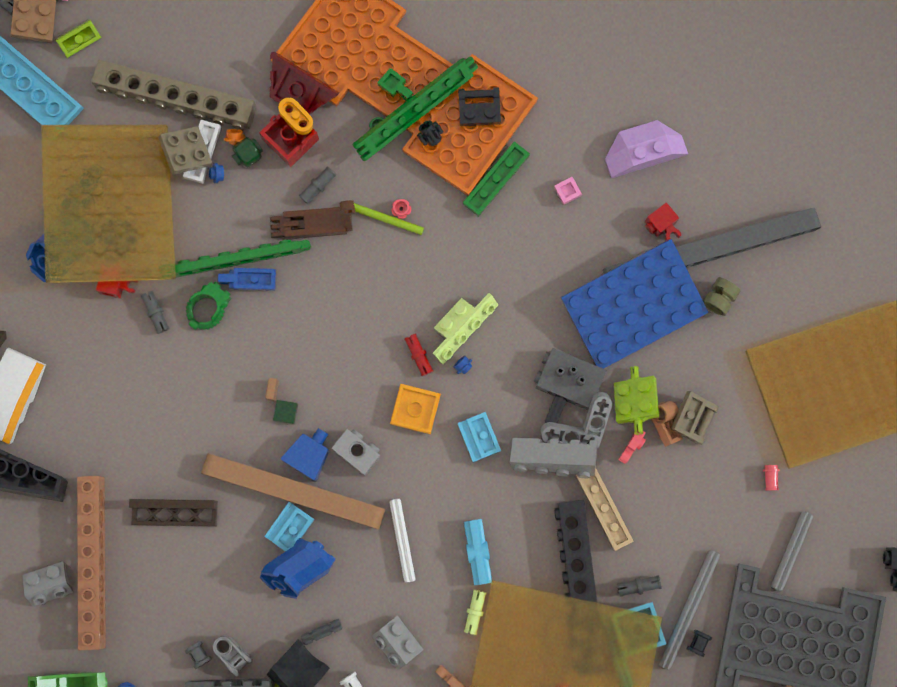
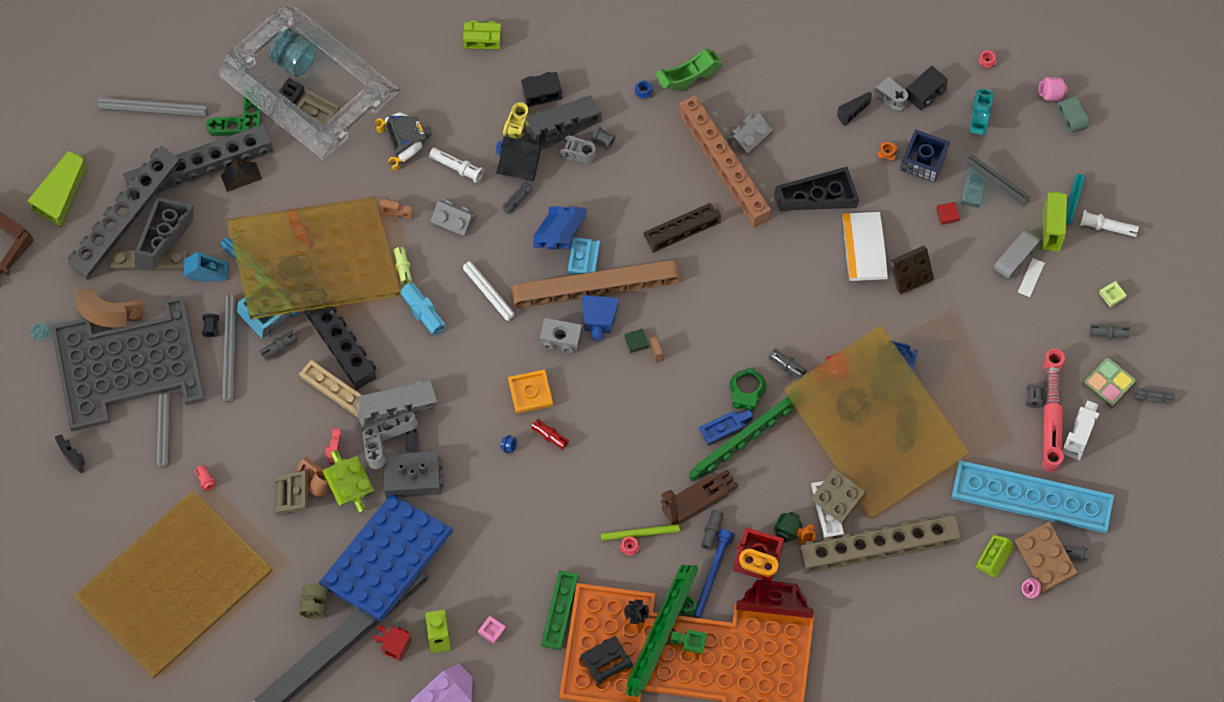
camera: 155 degrees right, 15 degrees down
(216, 173) = (804, 497): blue plate -> none
(310, 171) = (725, 538): none -> blue piece
(460, 324) = (528, 476): yellowish green bracket -> none
(479, 437) = (466, 394): medium azure plate -> none
(618, 212) = (438, 629): none -> lime torso

